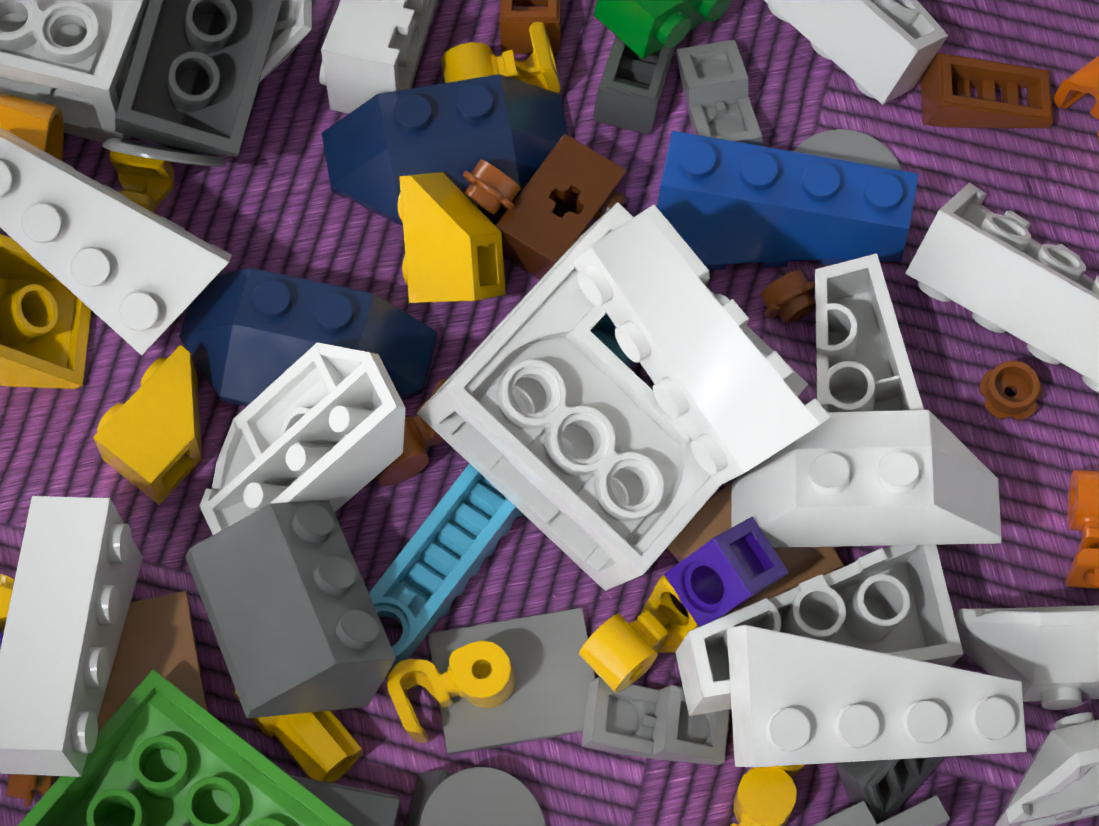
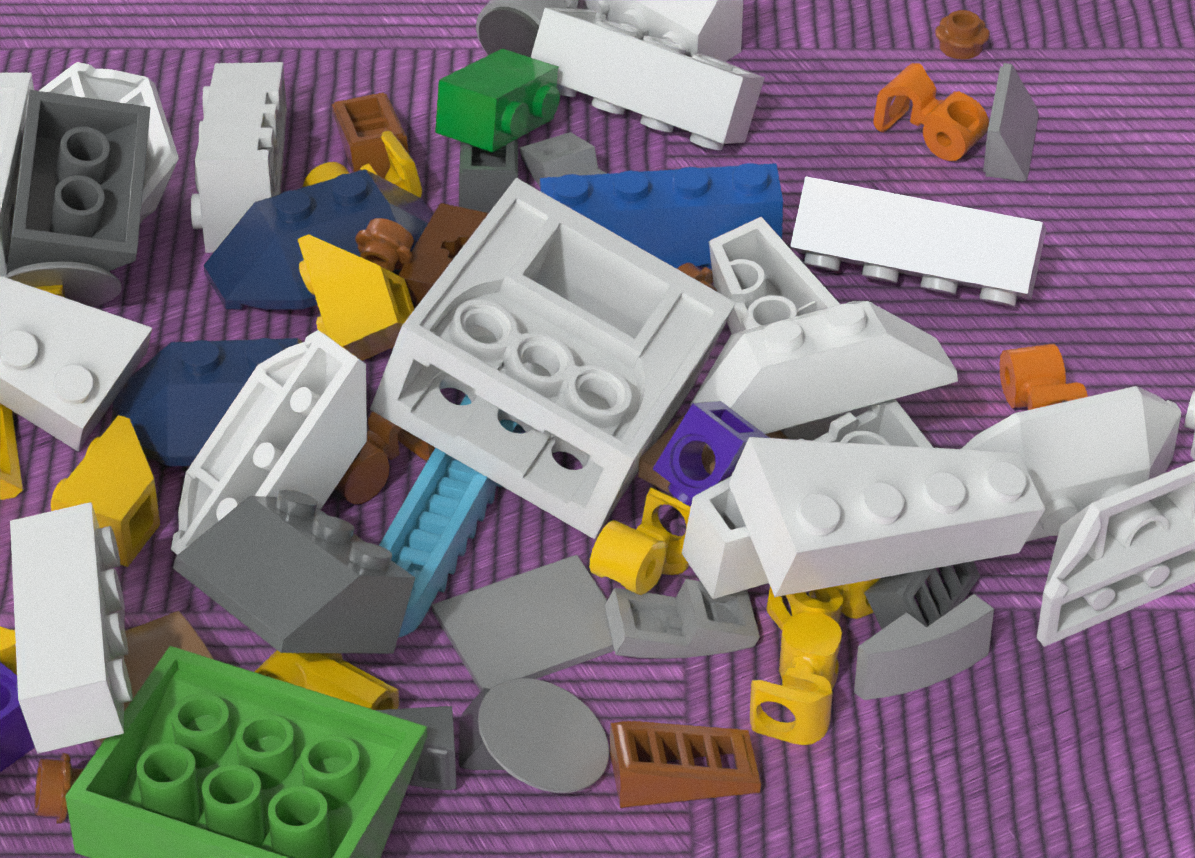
camera: 15 degrees left, 25 degrees down
(475, 671) = (492, 620): yellow leg -> none
(694, 347) = (629, 261): white wedge -> none
(948, 100) = (809, 128): dark orange slope -> none
(1016, 376) = (923, 310): dark orange plate -> none

